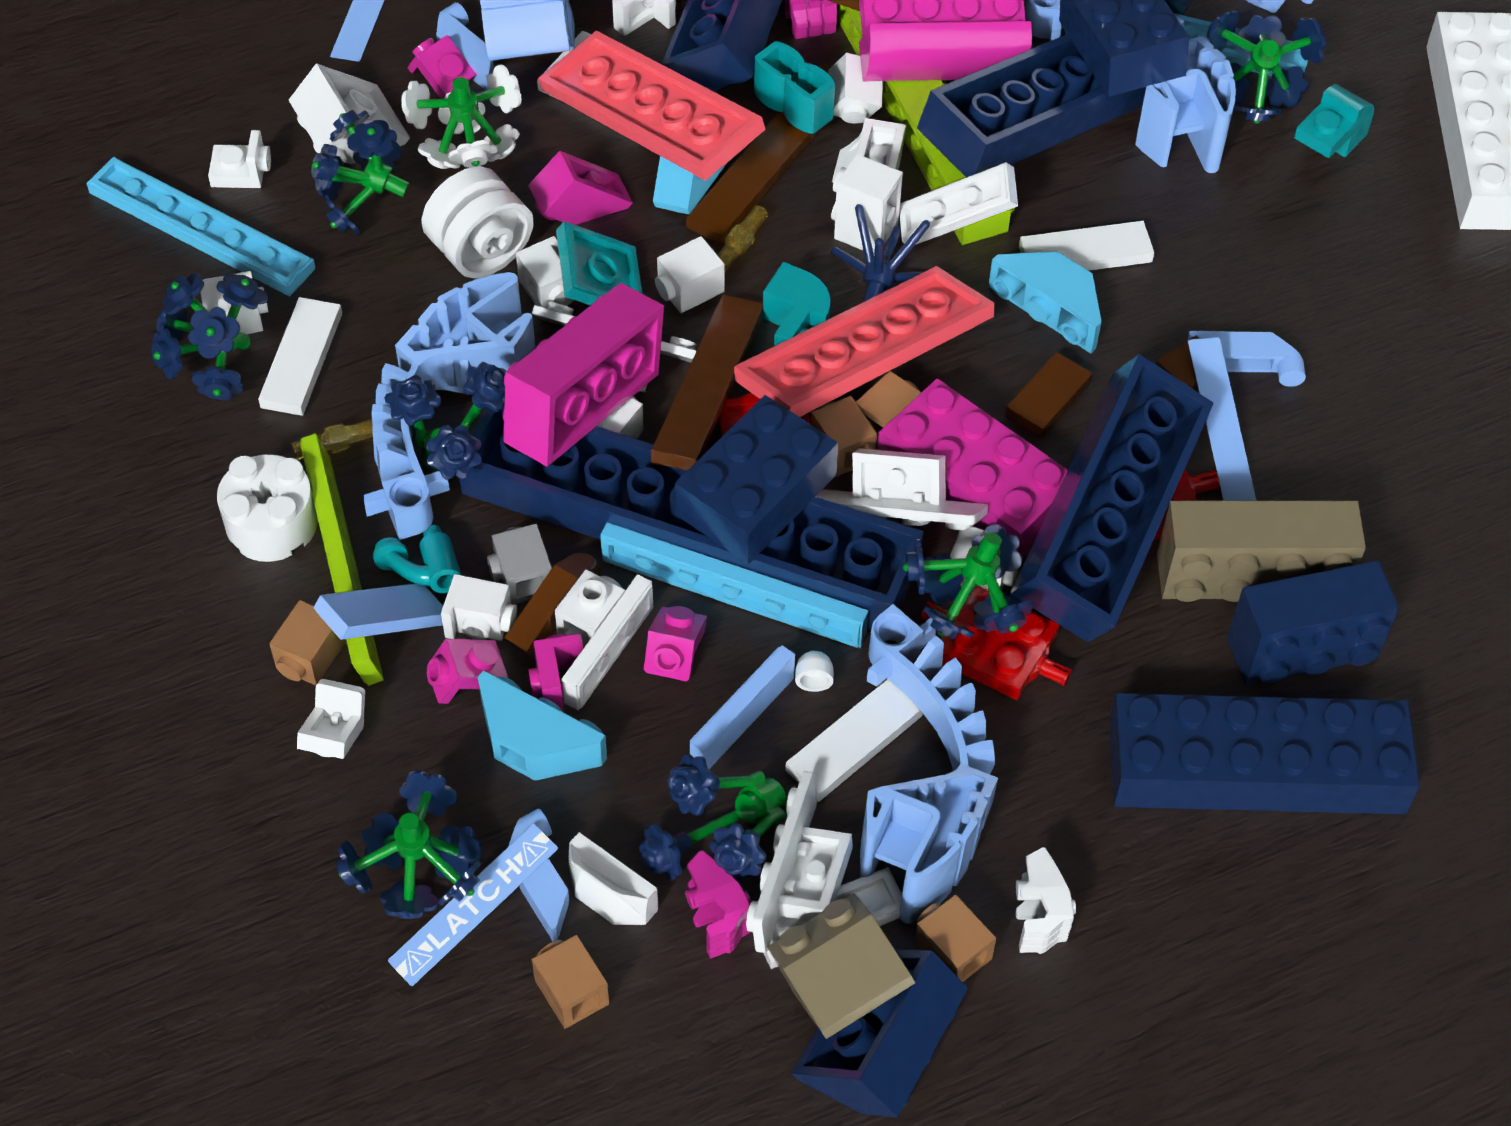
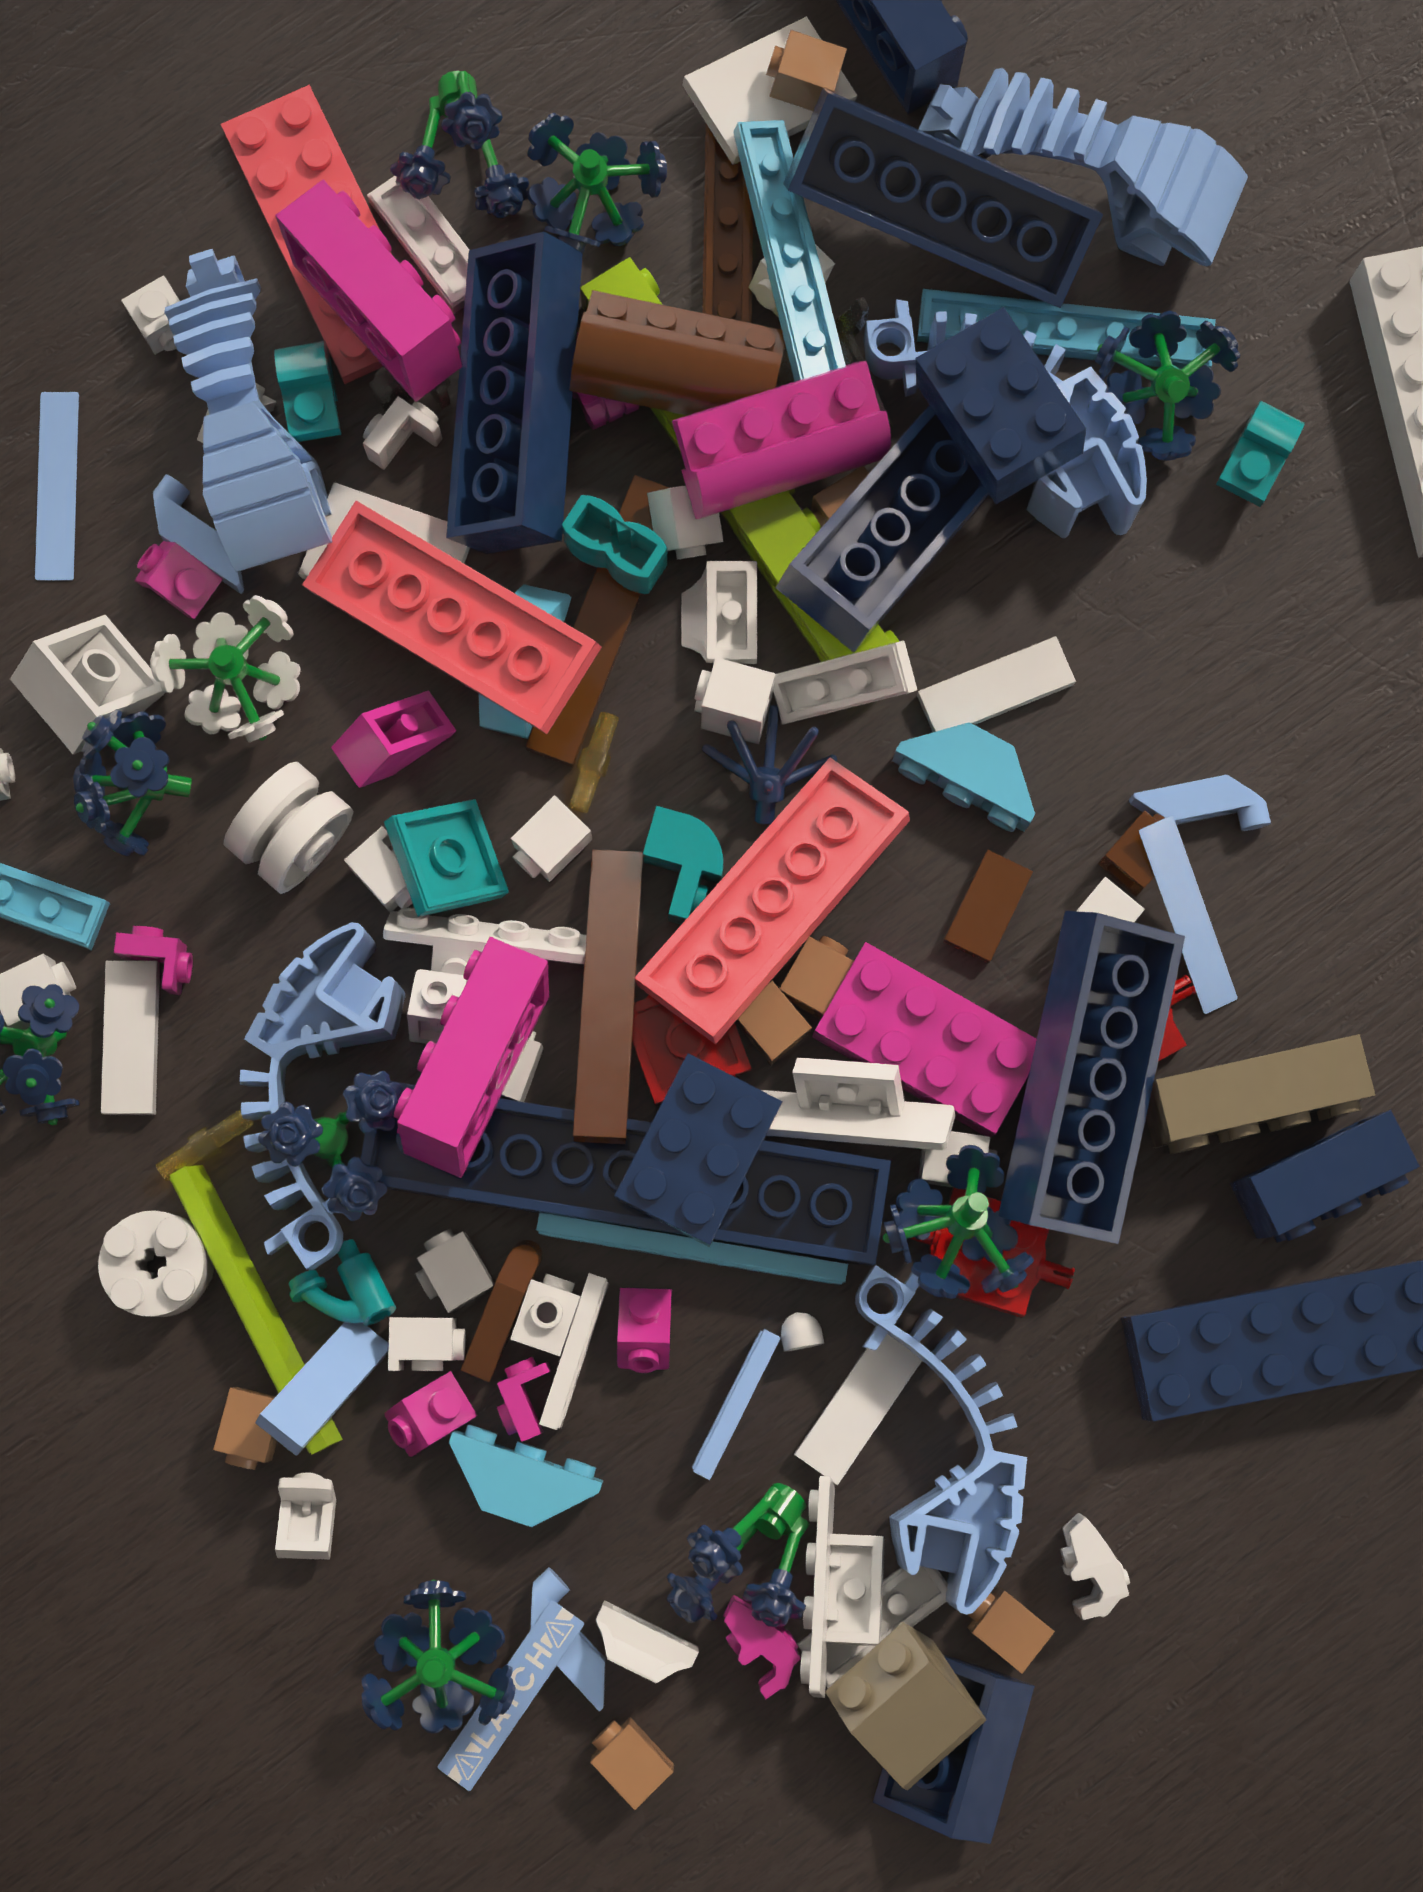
camera: 15 degrees left, 25 degrees up
(342, 290) = (150, 945): none -> dark pink bracket

